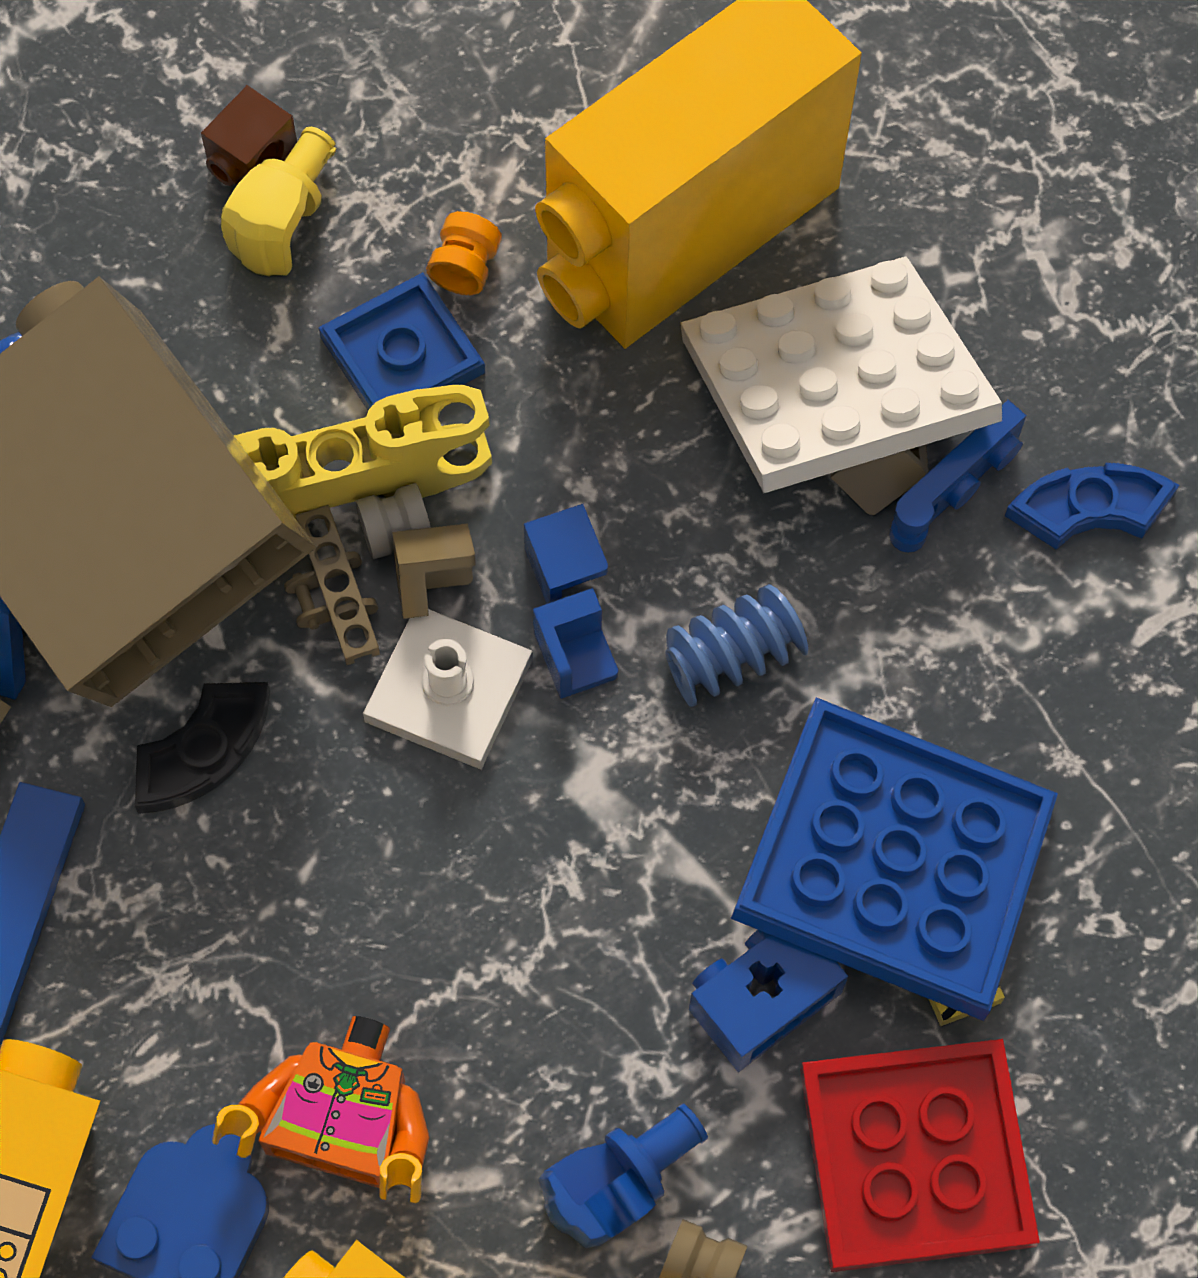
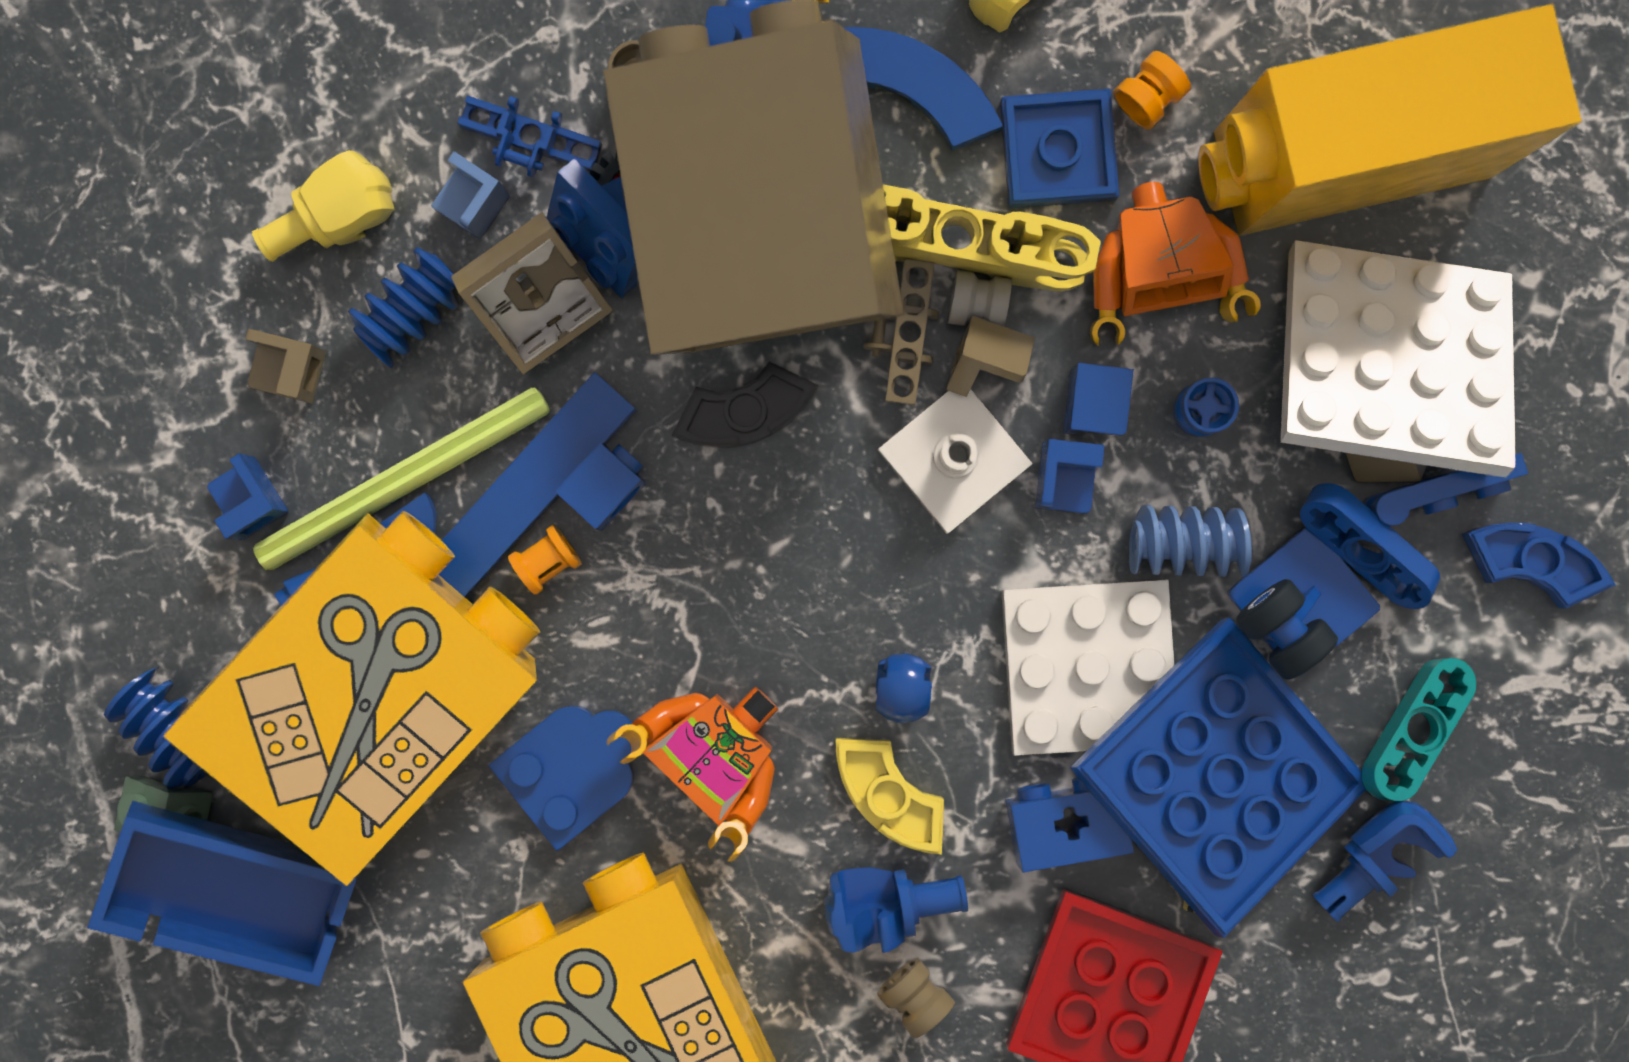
camera: 30 degrees right, 20 degrees up
(54, 1000) = (544, 559): none -> light orange bush
(82, 890) = (602, 485): none -> blue brick
(247, 351) = (930, 83): none -> blue tile
(514, 938) = (903, 688): none -> blue piece
(559, 1070) = (887, 798): none -> light yellow tile
(563, 390) = (1167, 259): none -> orange torso
(678, 497) = (1216, 406): none -> blue wheel
(685, 820) = (1081, 659): none -> white plate
(883, 650) = (1301, 603): none -> blue plate
(930, 583) = (1397, 572): none -> blue beam
(1055, 735) = (1442, 723): none -> teal beam
(1104, 872) = (1373, 859): none -> blue piece

